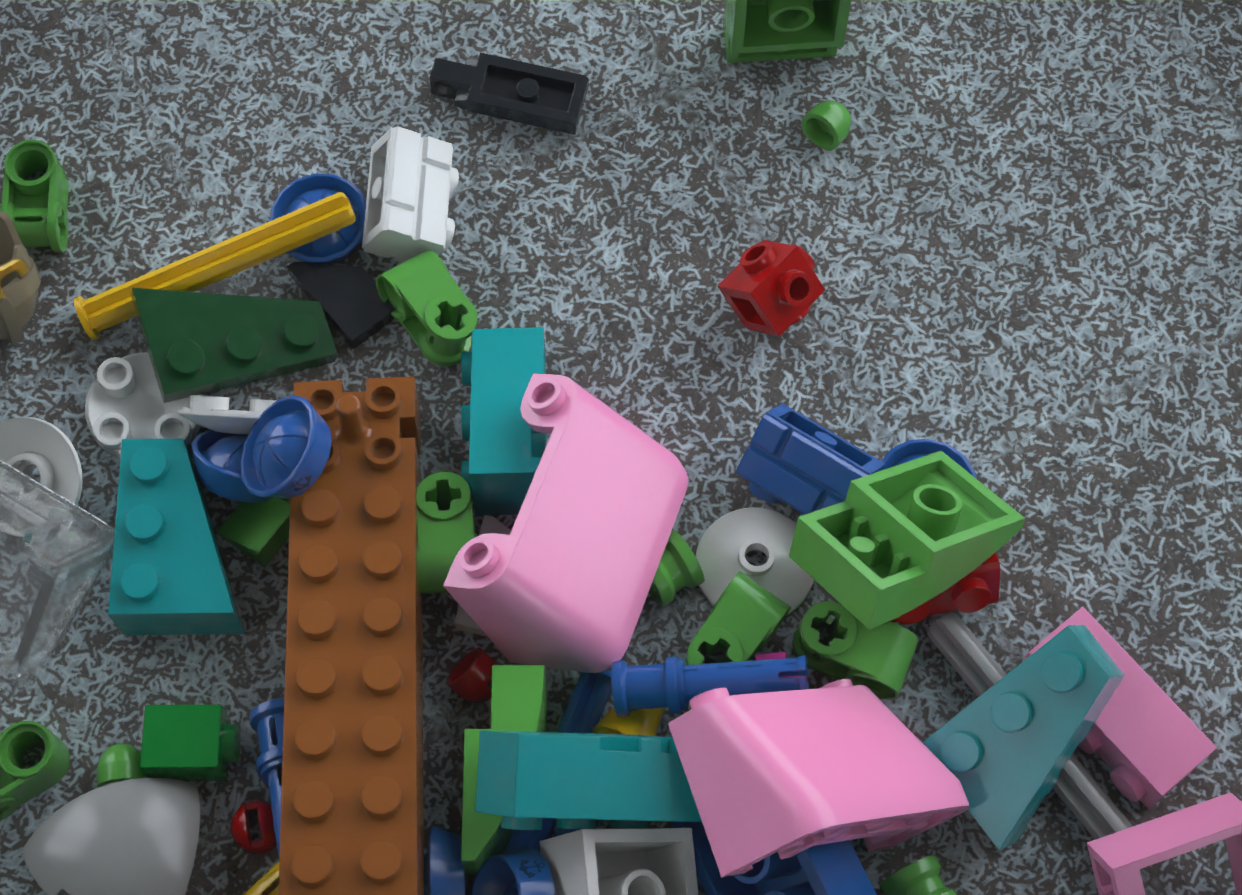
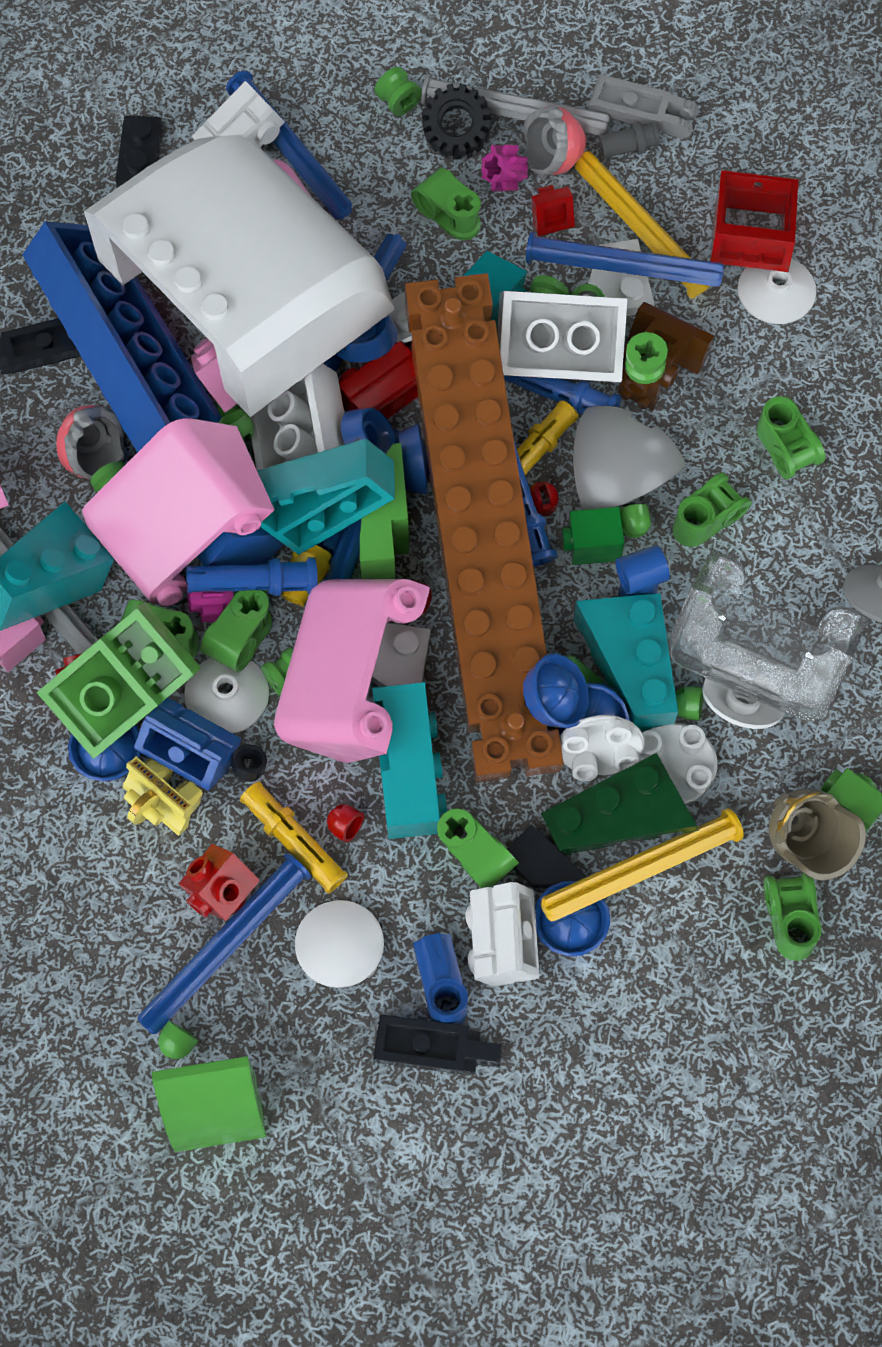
camera: 175 degrees right, 0 degrees up
(100, 486) = (690, 702): none -> bright green hinge
(129, 647) = (642, 571): none -> blue piece
(443, 527) = (439, 664): bright green piece -> none
(494, 159) = (441, 977): none -> blue piece
(598, 362) = (345, 822): none -> red hinge
(619, 220) = (339, 944): none -> white dish
(714, 396) = (282, 825): none -> yellow pin
(714, 446) = (258, 758): none -> black hinge
(770, 224) = (223, 944): none -> blue axle
(826, 400) = (157, 800): none -> light yellow hips

